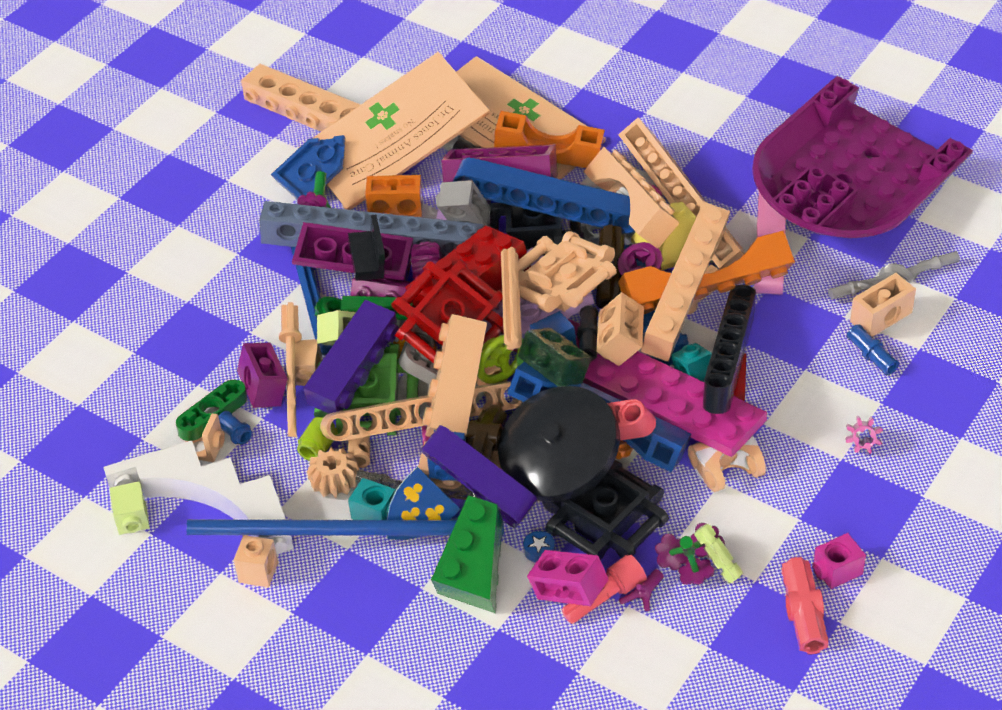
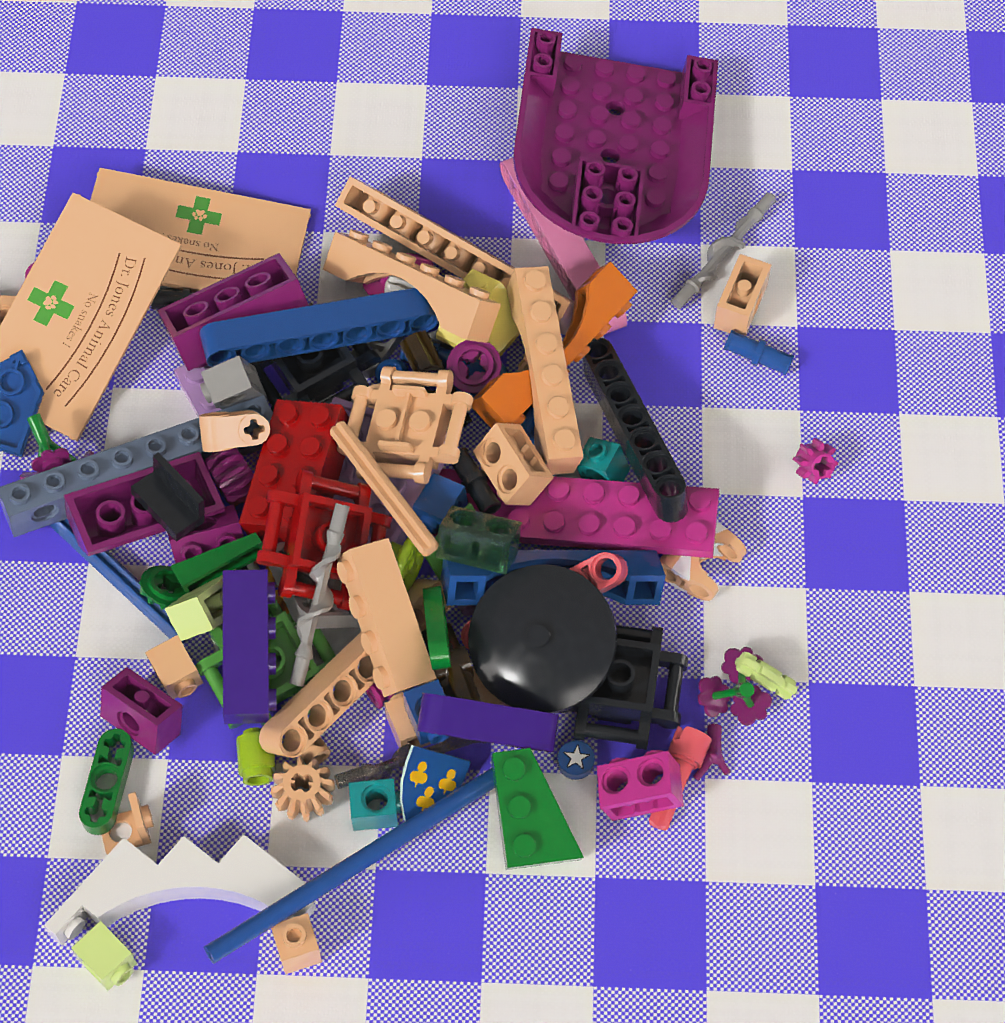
camera: 35 degrees left, 15 degrees up
(239, 432) = (150, 790): blue pin -> none
(290, 335) = (147, 646): light nougat piece -> none
(395, 195) = (130, 401): orange brick -> none
(421, 346) = (323, 596): none -> light grey piece
(436, 228) = (226, 430): none -> light nougat piece
(486, 402) = (436, 628): none -> green beam
(571, 149) = (299, 242): orange arch -> none
(804, 605) = (878, 688): coral piece -> none
(838, 561) = (884, 608): dark pink brick -> none

